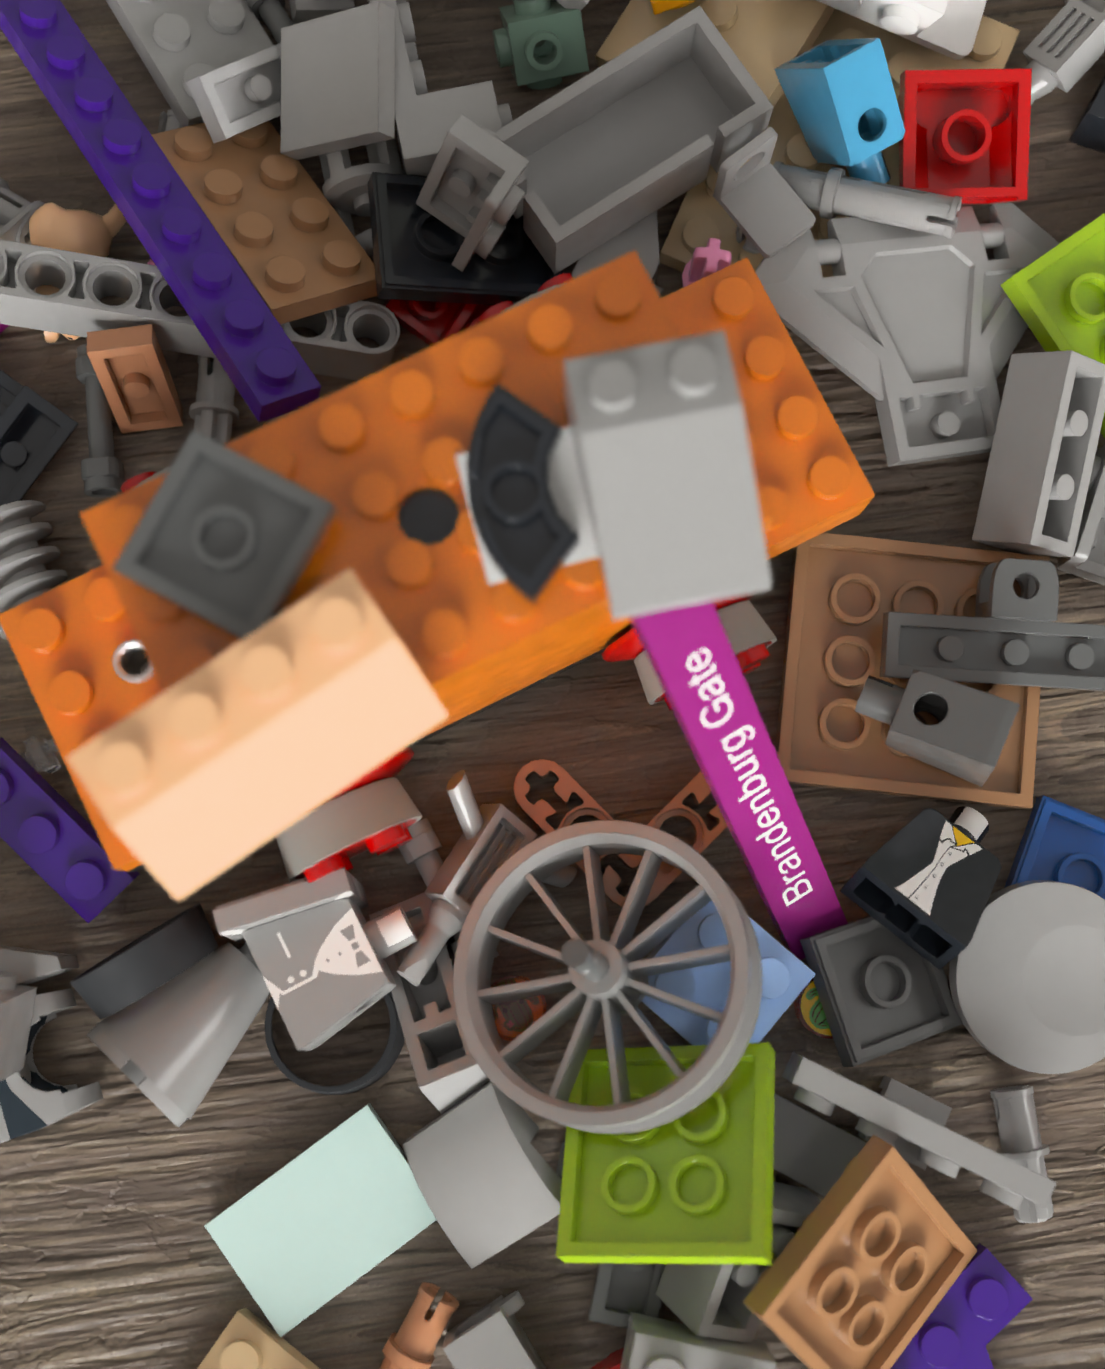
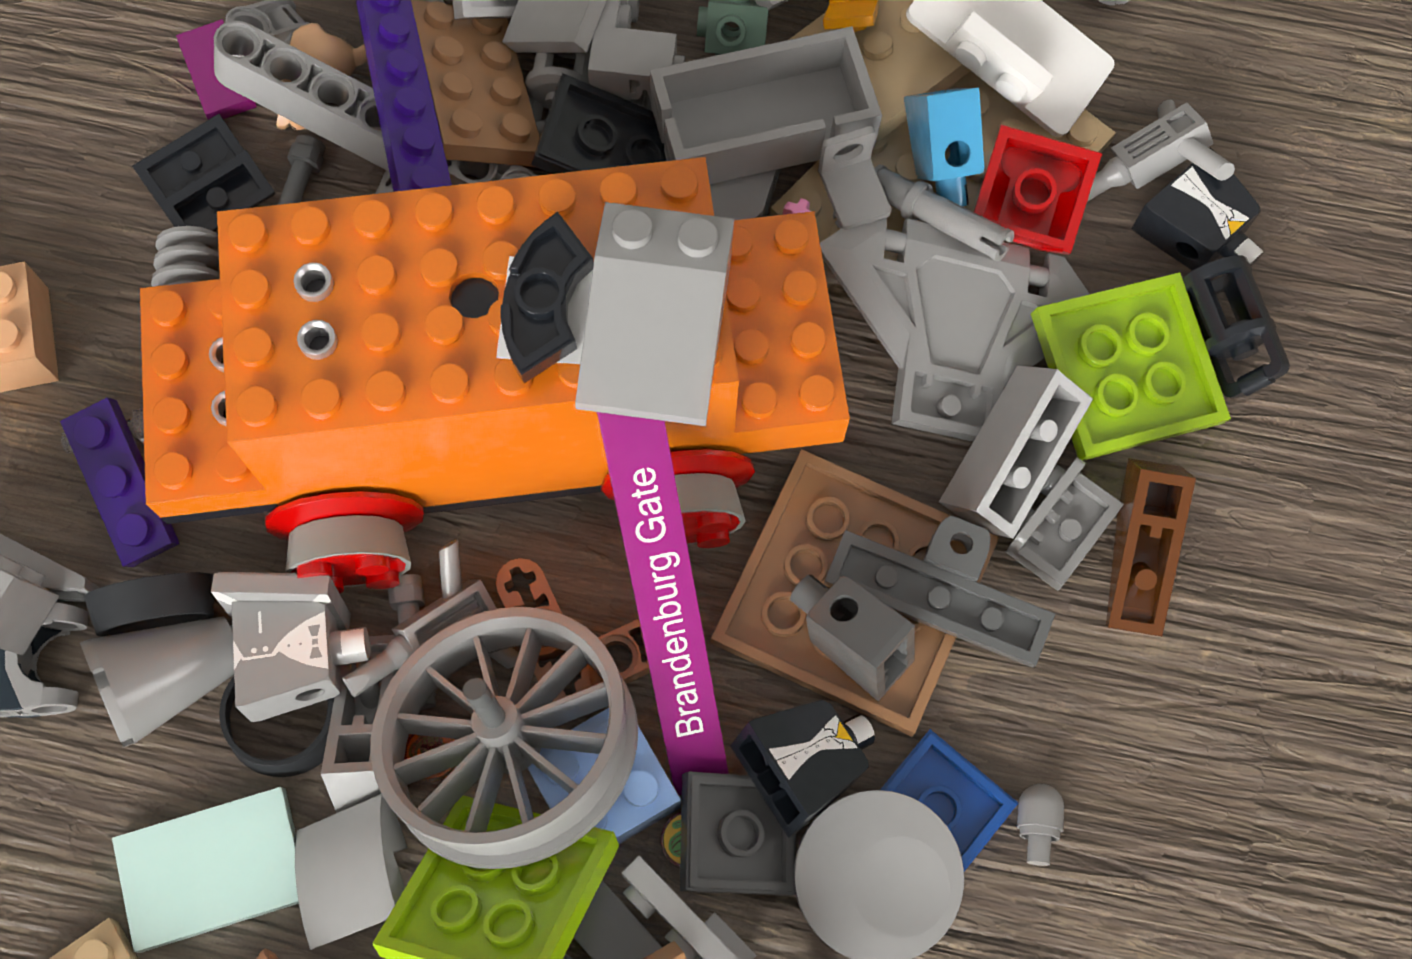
camera: 20 degrees right, 10 degrees down
(135, 378) = (326, 160): nougat plate -> none
(225, 537) = (311, 257): dark grey plate -> none
(259, 736) = (274, 403): light nougat slope -> none
(473, 187) = (628, 103): light grey bracket -> none

